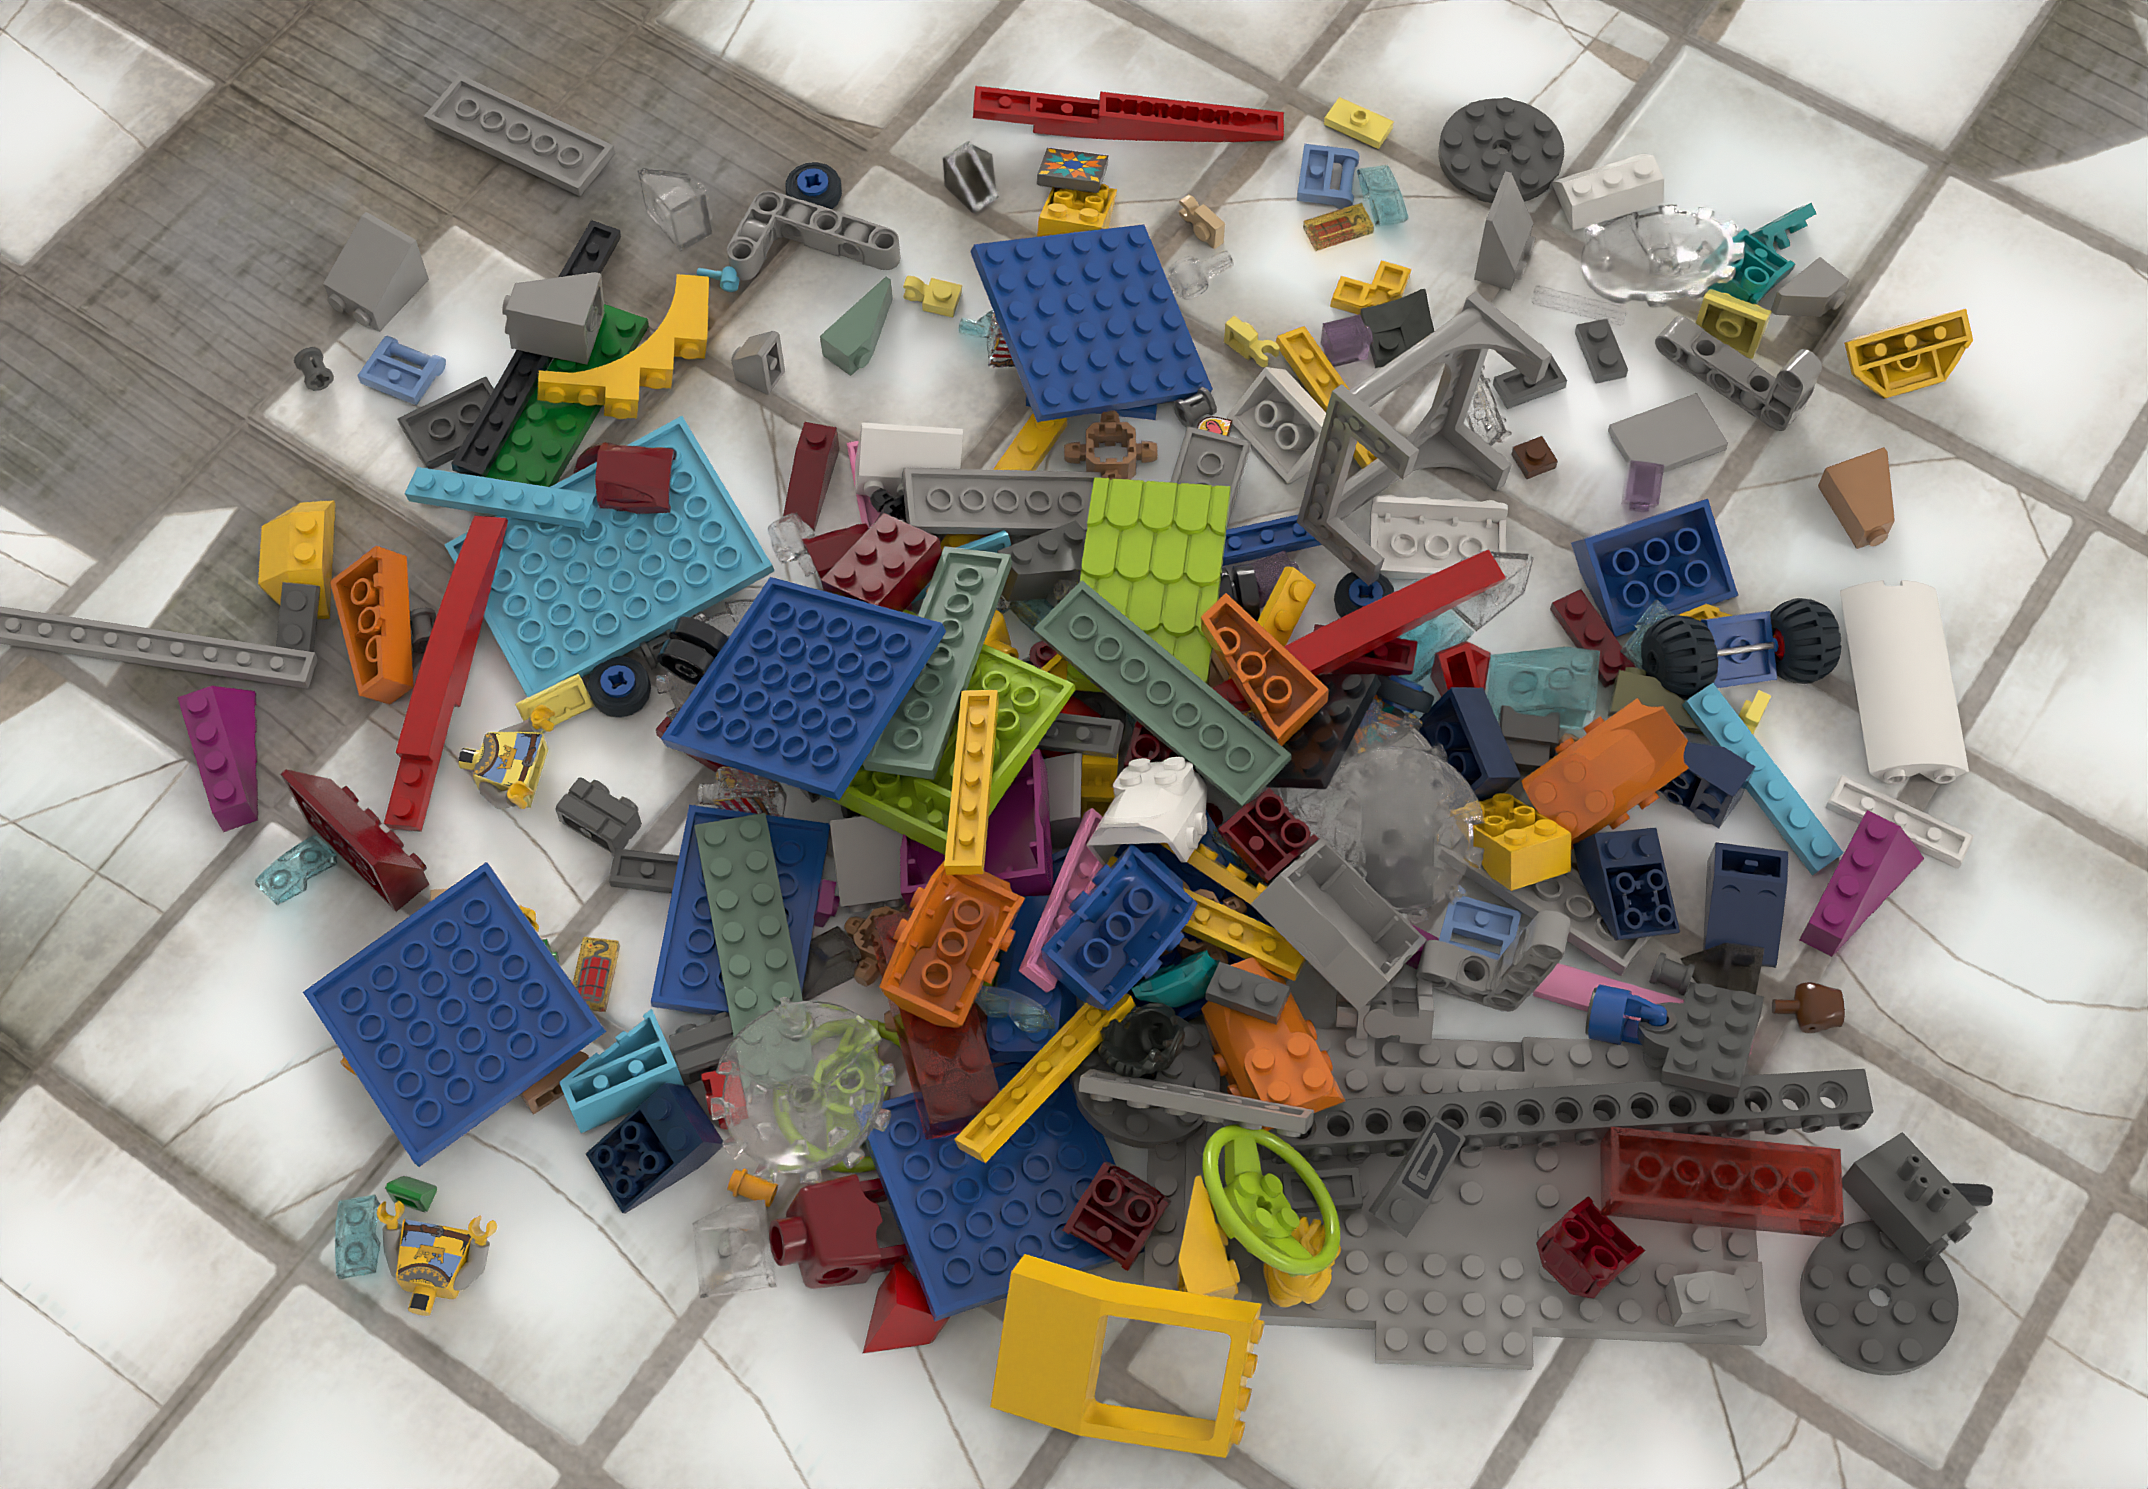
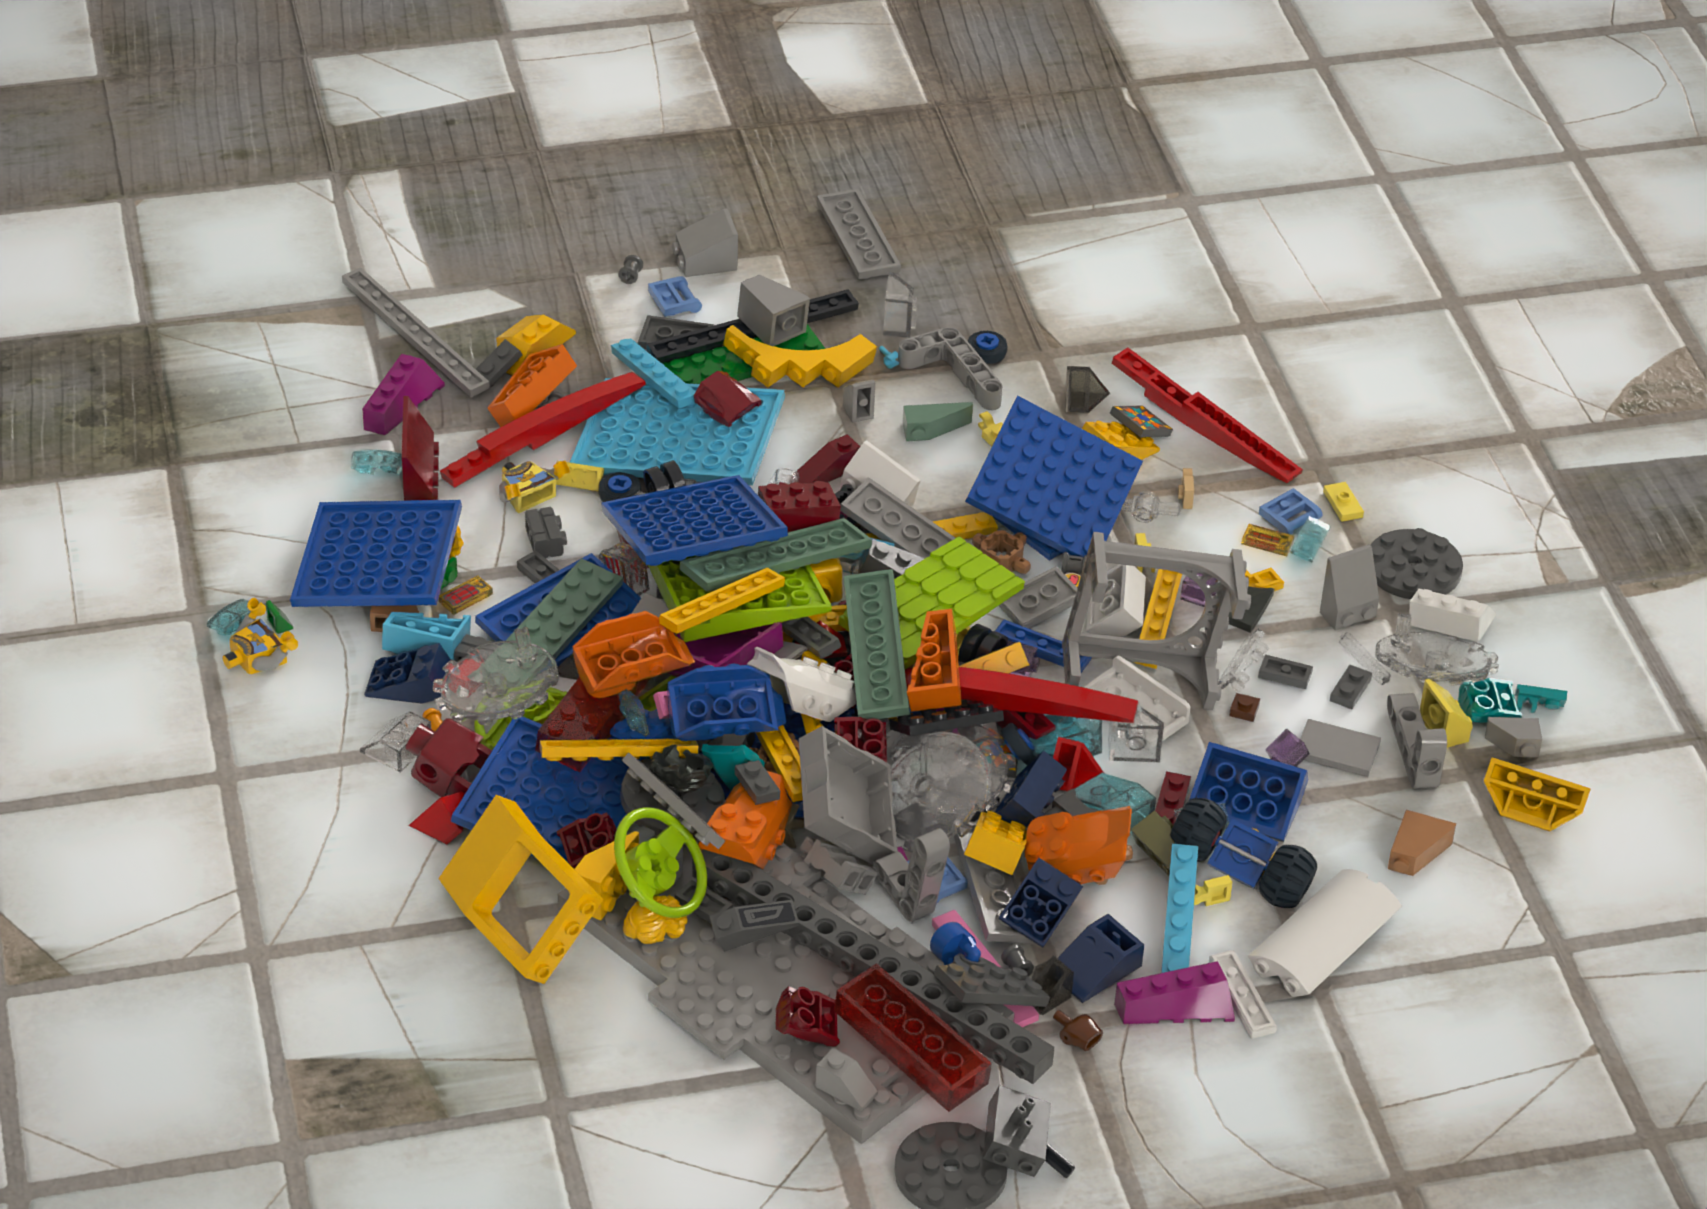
camera: 40 degrees right, 20 degrees down
(1711, 783) = (1142, 890): dark blue slope -> none

